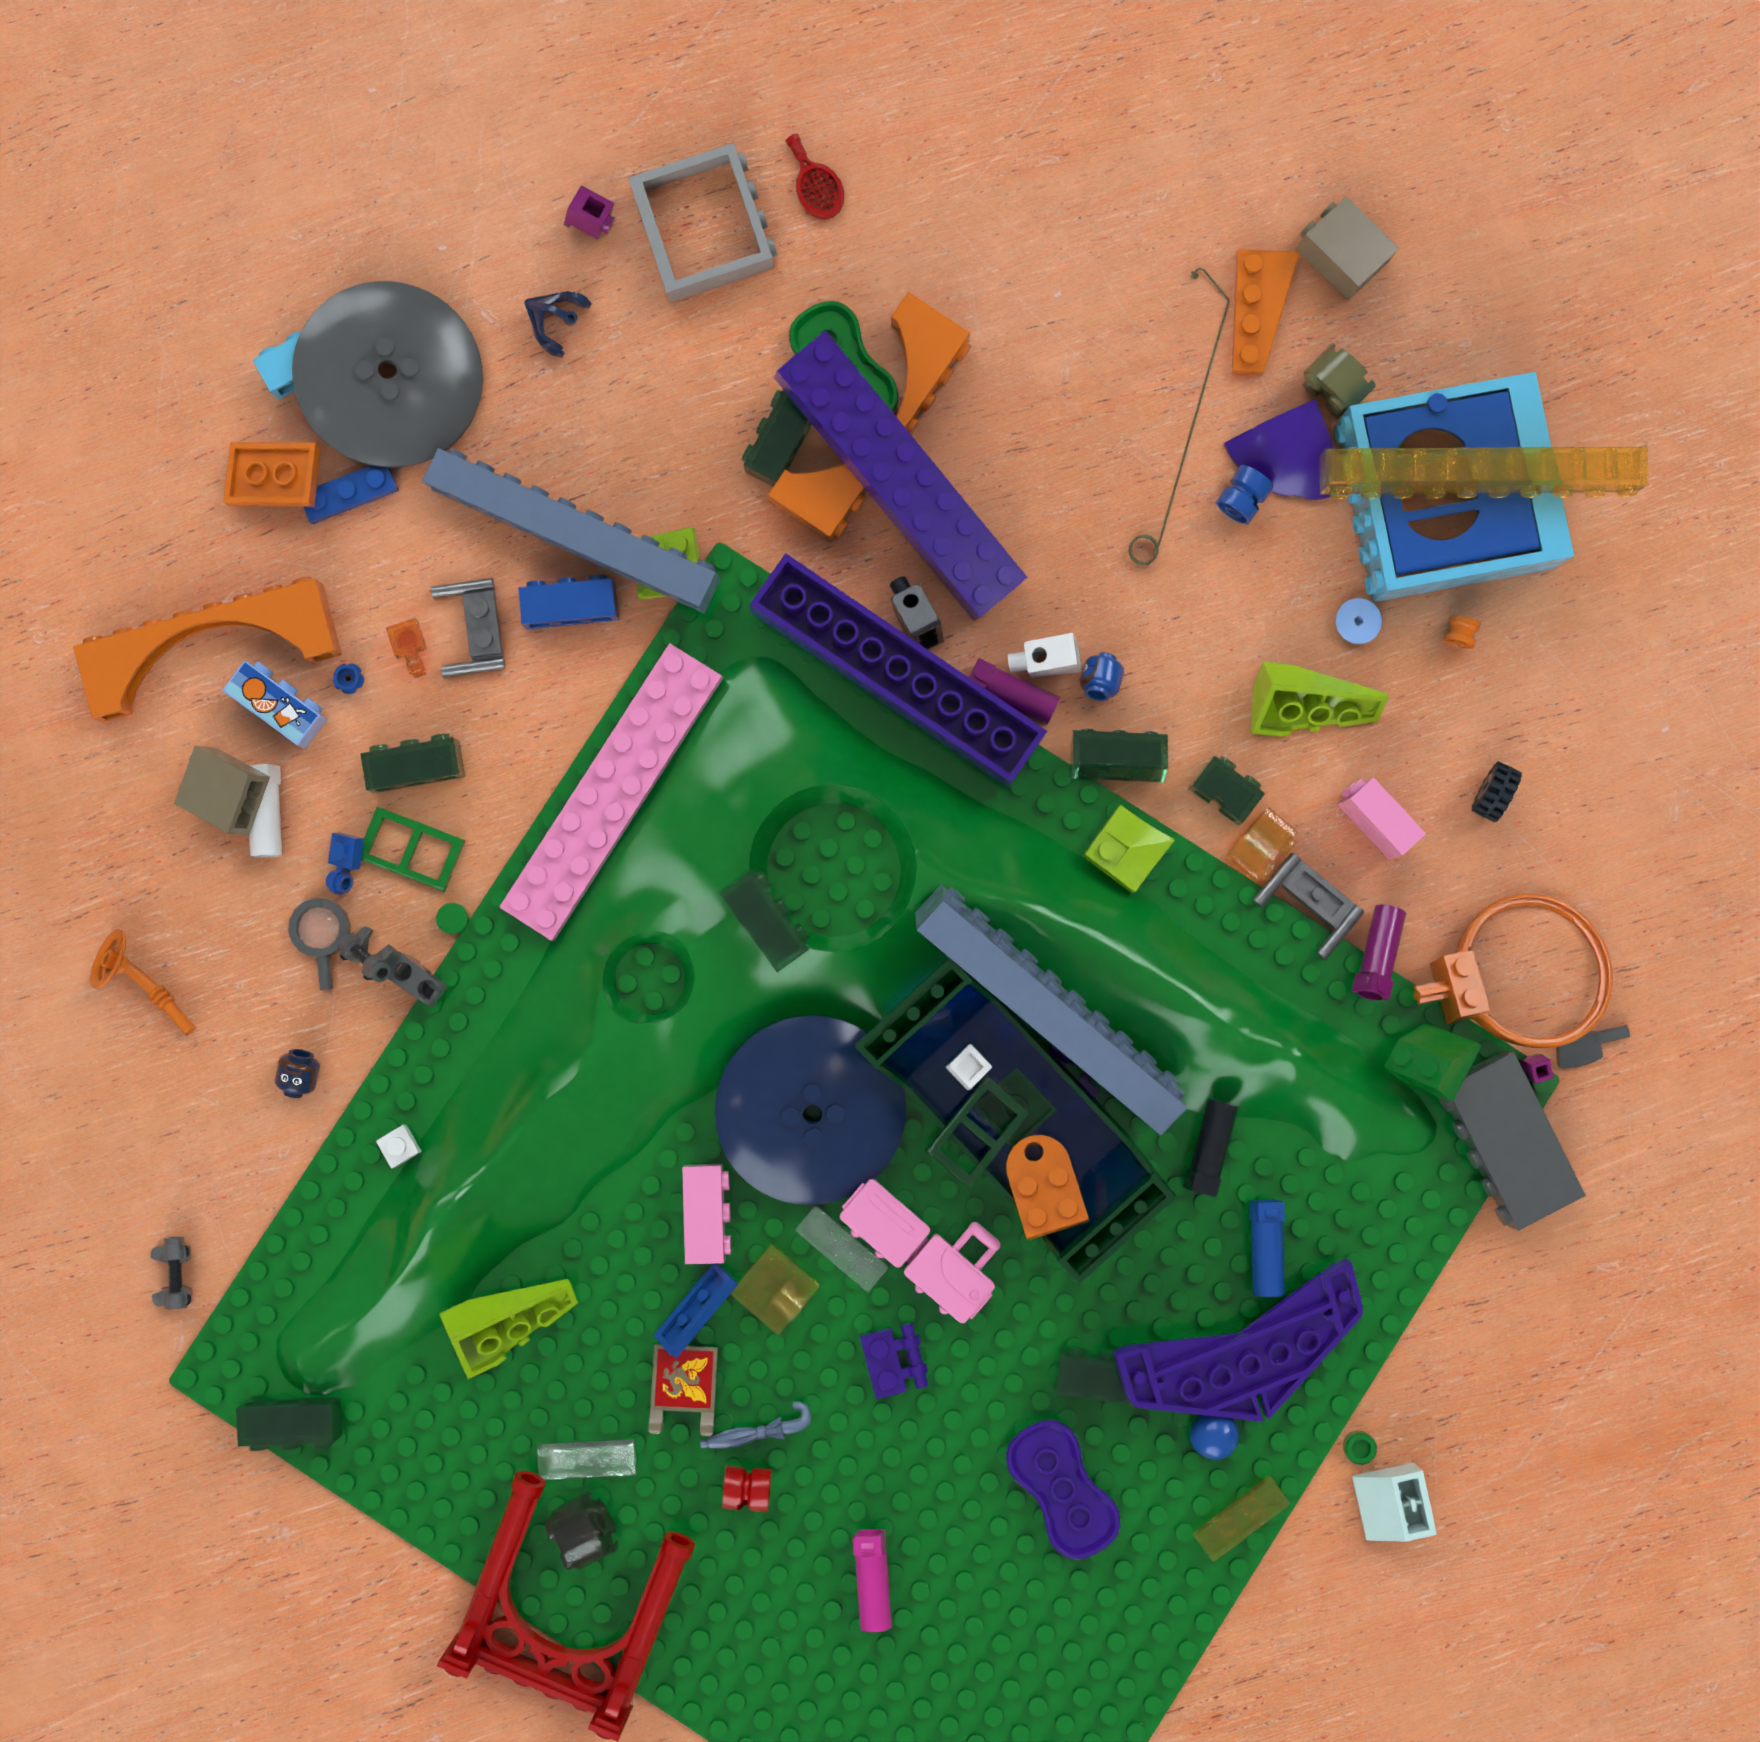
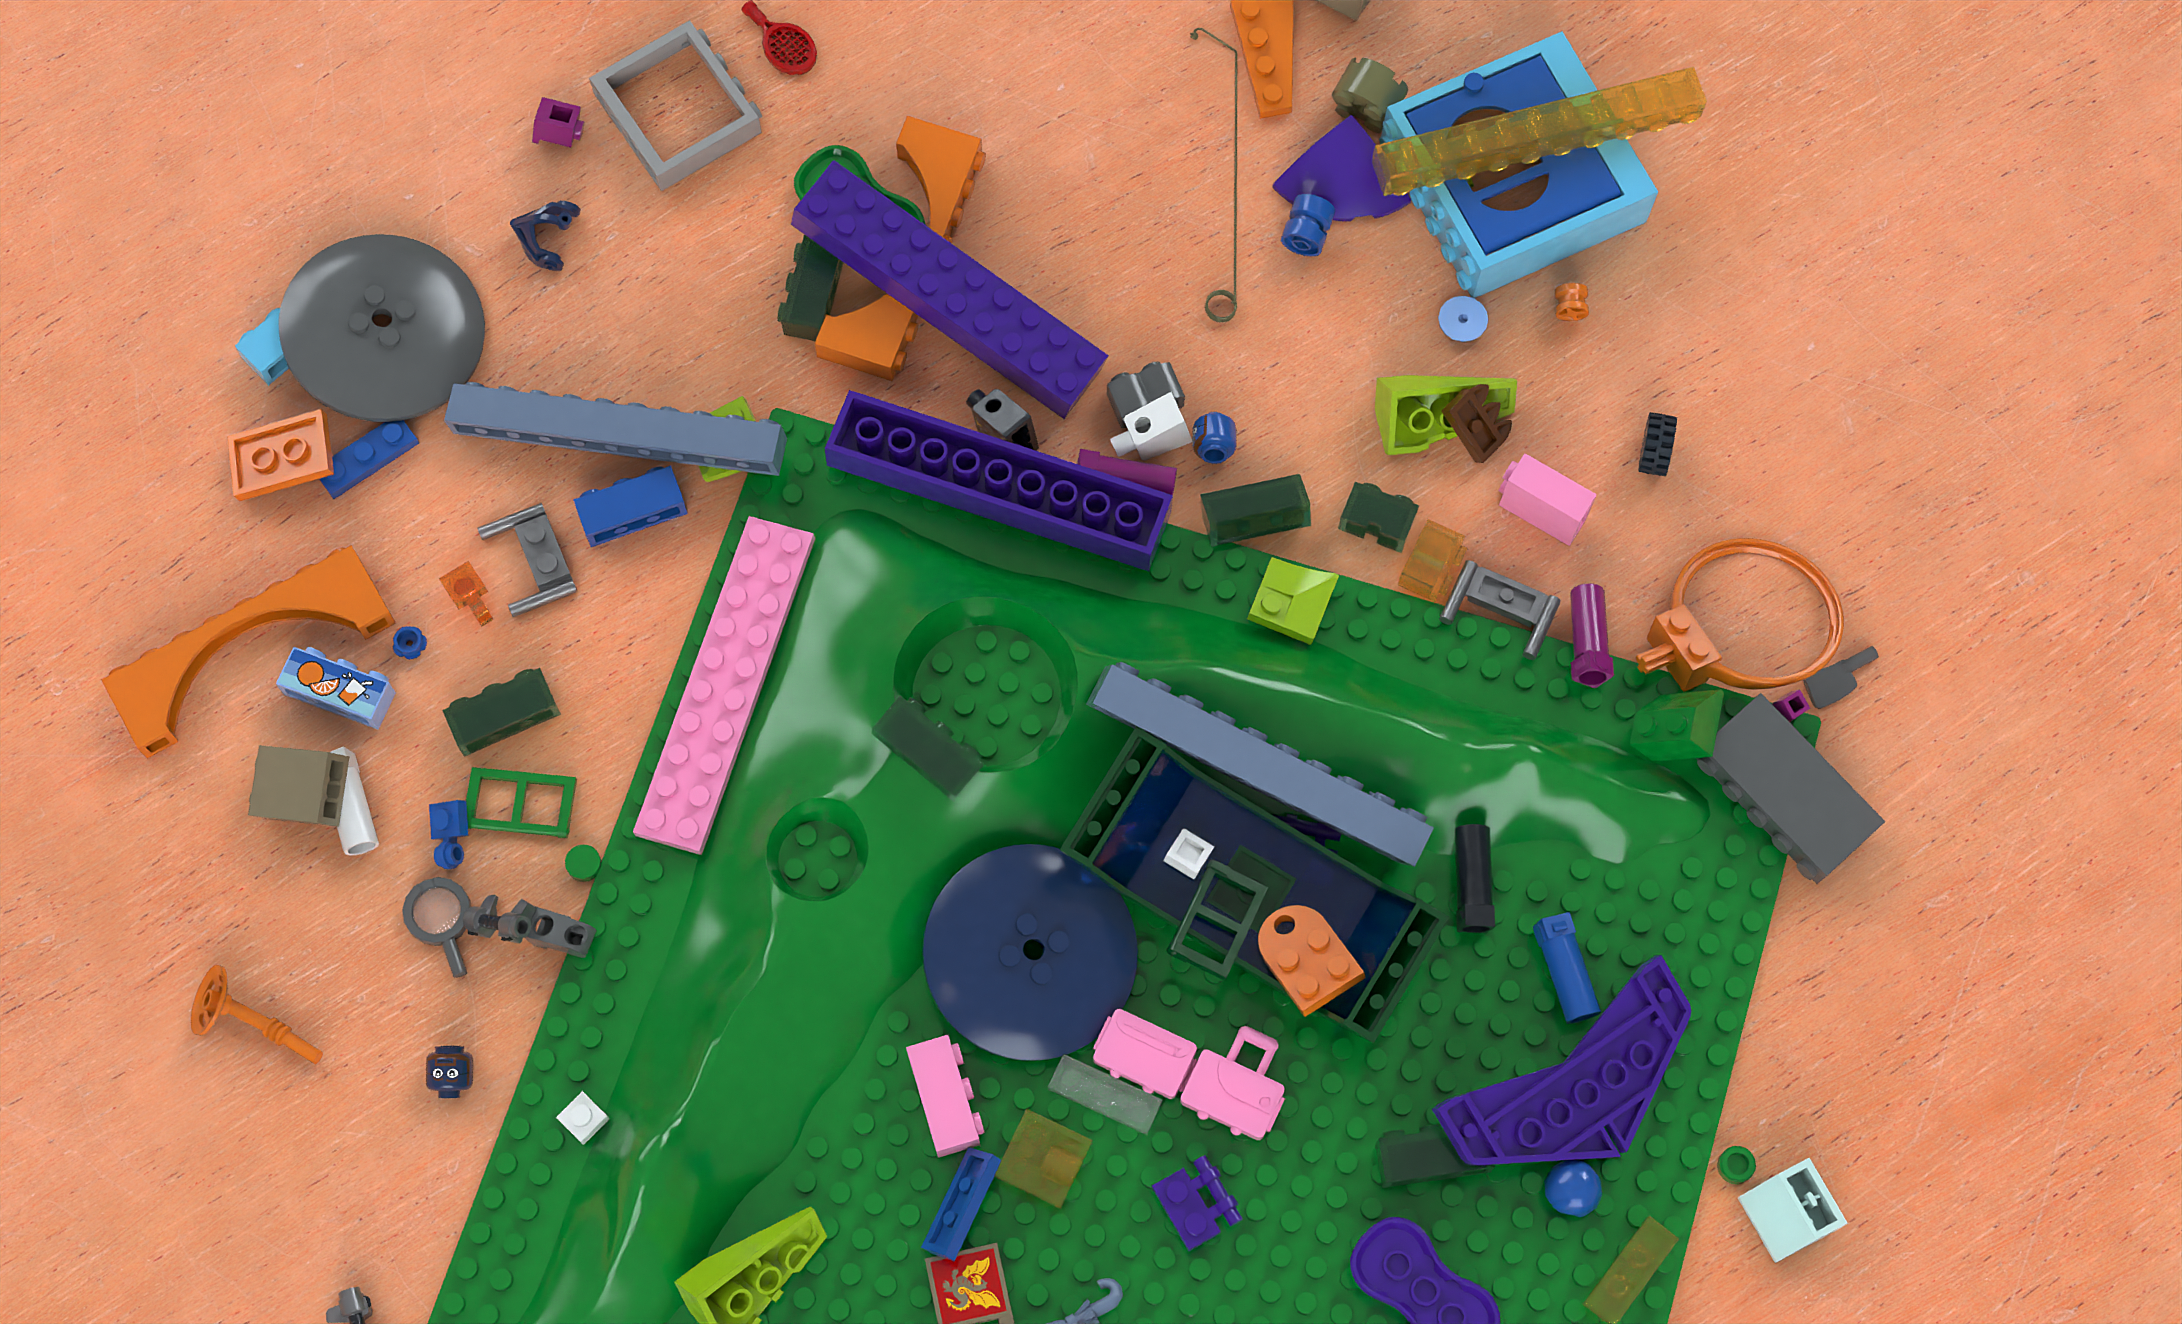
camera: 20 degrees left, 15 degrees down
(1051, 617) = (1133, 391): none -> dark grey brick
(1340, 728) = (1475, 422): none -> reddish brown plate

